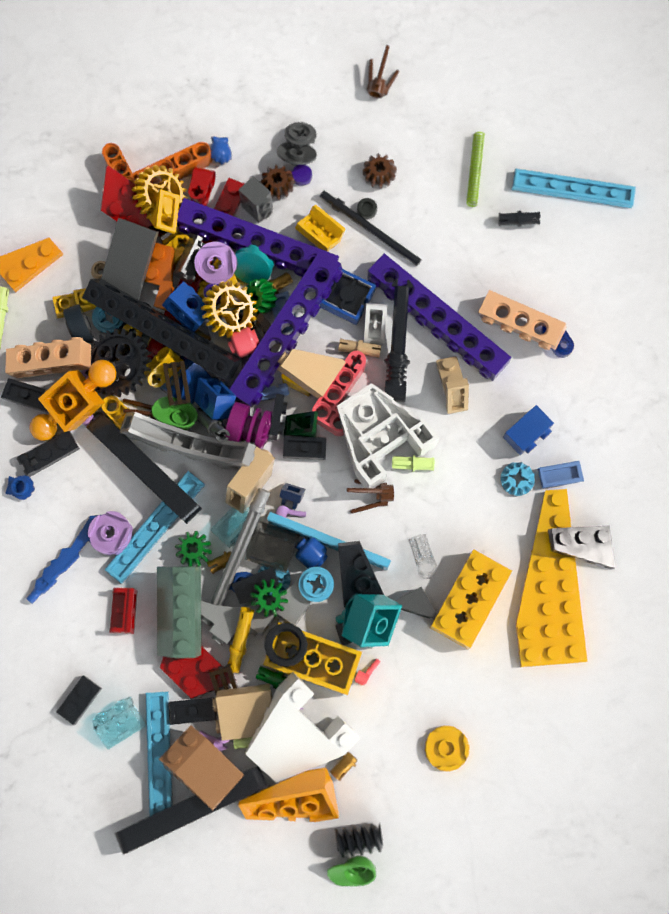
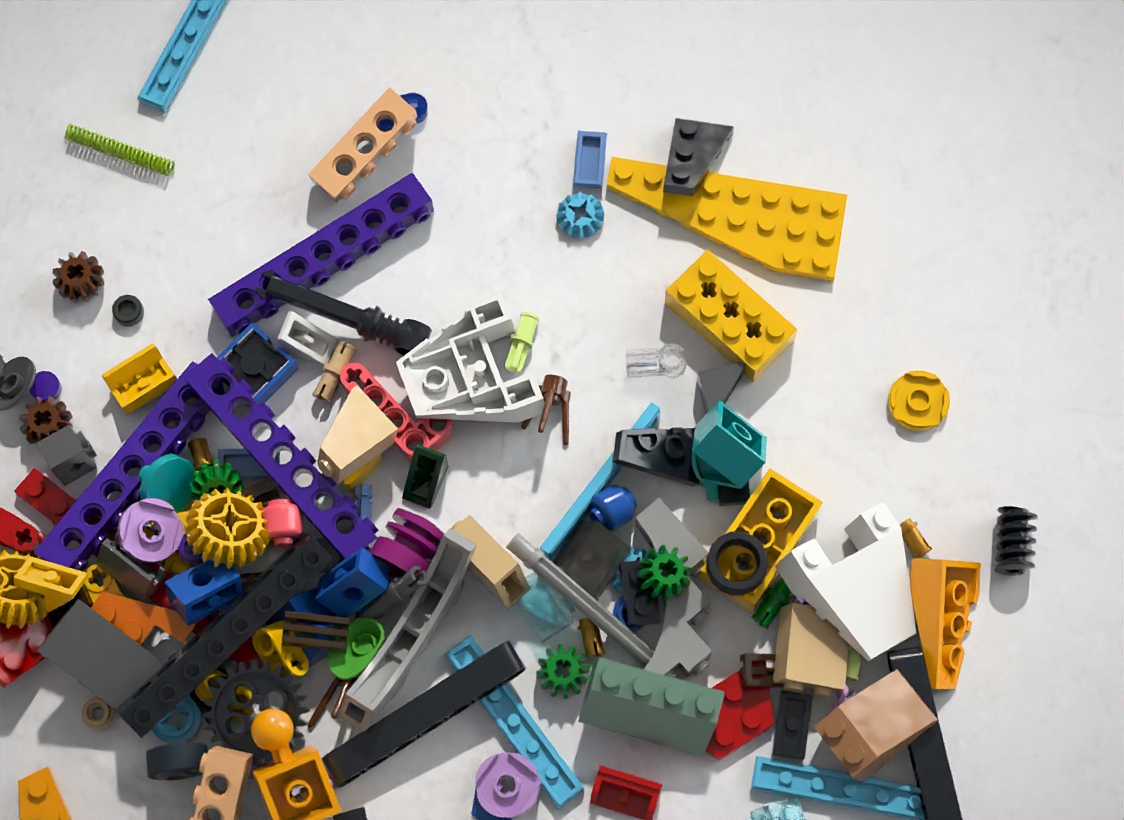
camera: 75 degrees left, 5 degrees down
(65, 301) = (132, 777): yellow slope -> none
(117, 415) = (333, 730): yellow piece -> none
(238, 646) = (721, 639): yellow pin -> none
(279, 408) = (389, 500): black plate -> none
(283, 511) = (541, 533): lavender hand -> none
(292, 493) = (519, 515): dark blue tile -> none
(304, 447) = (458, 482): black plate -> none
(311, 575) = (657, 493): medium azure gear -> none
(339, 206) = (111, 347): black bar -> none
(355, 872) = (1056, 556): bright green cap -> none
(362, 677) = (799, 479): coral hand -> none
(454, 386) = (429, 258): tan bracket -> none
(519, 218) = (213, 112): black pin -> none
(528, 430) = (520, 180): blue brick -> none

